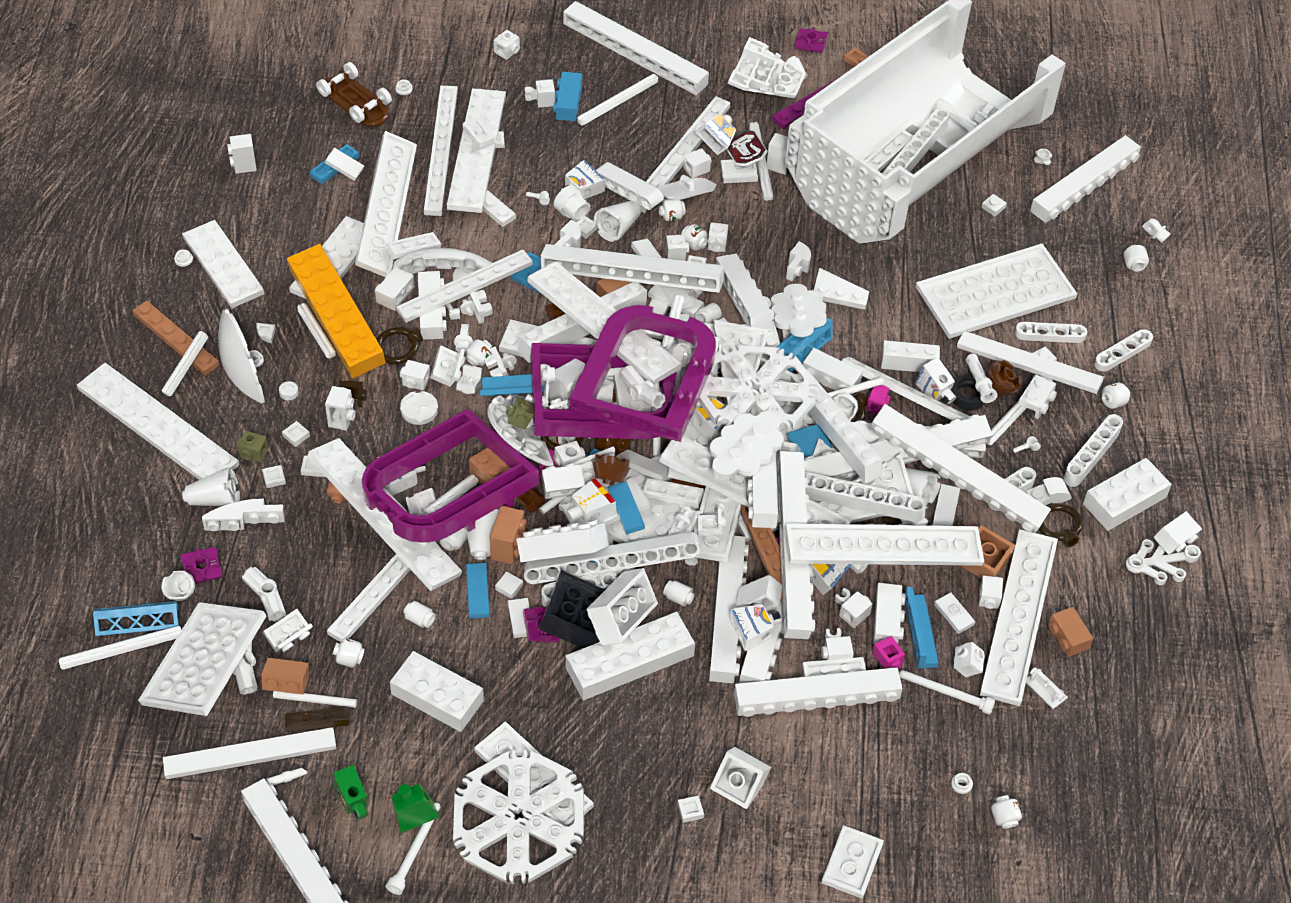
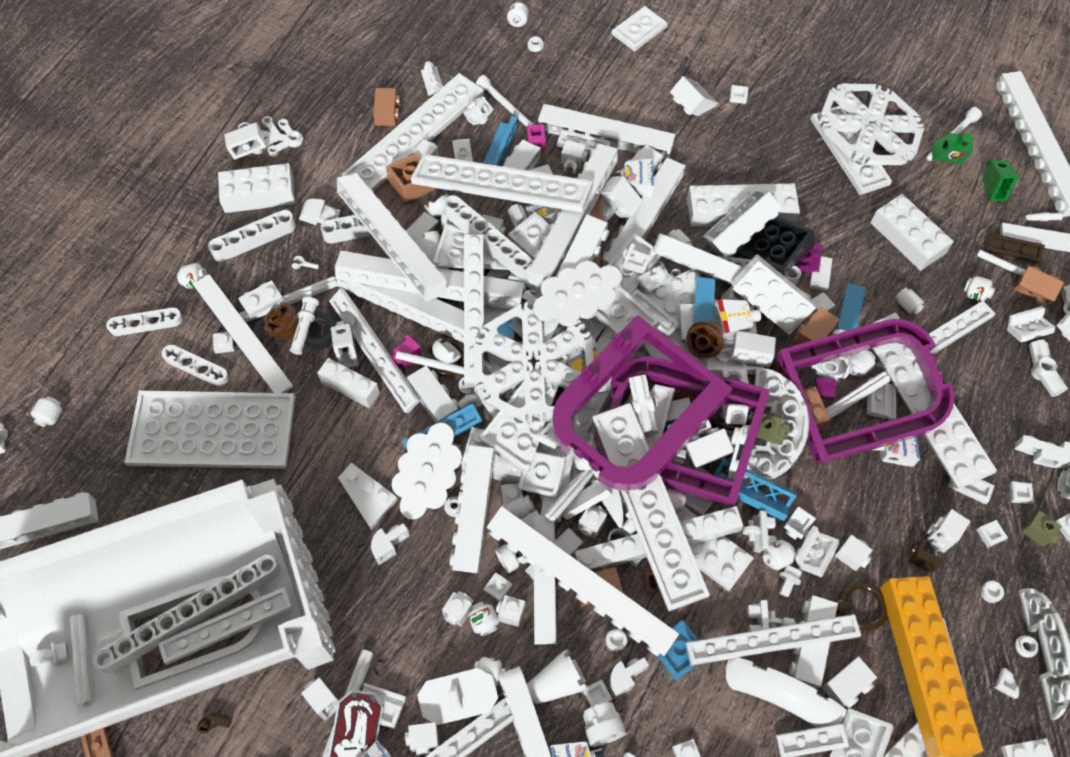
camera: 155 degrees left, 10 degrees up
(419, 407) = (857, 518): white tile -> none
(1069, 536) = (330, 175): dark brown piece -> none

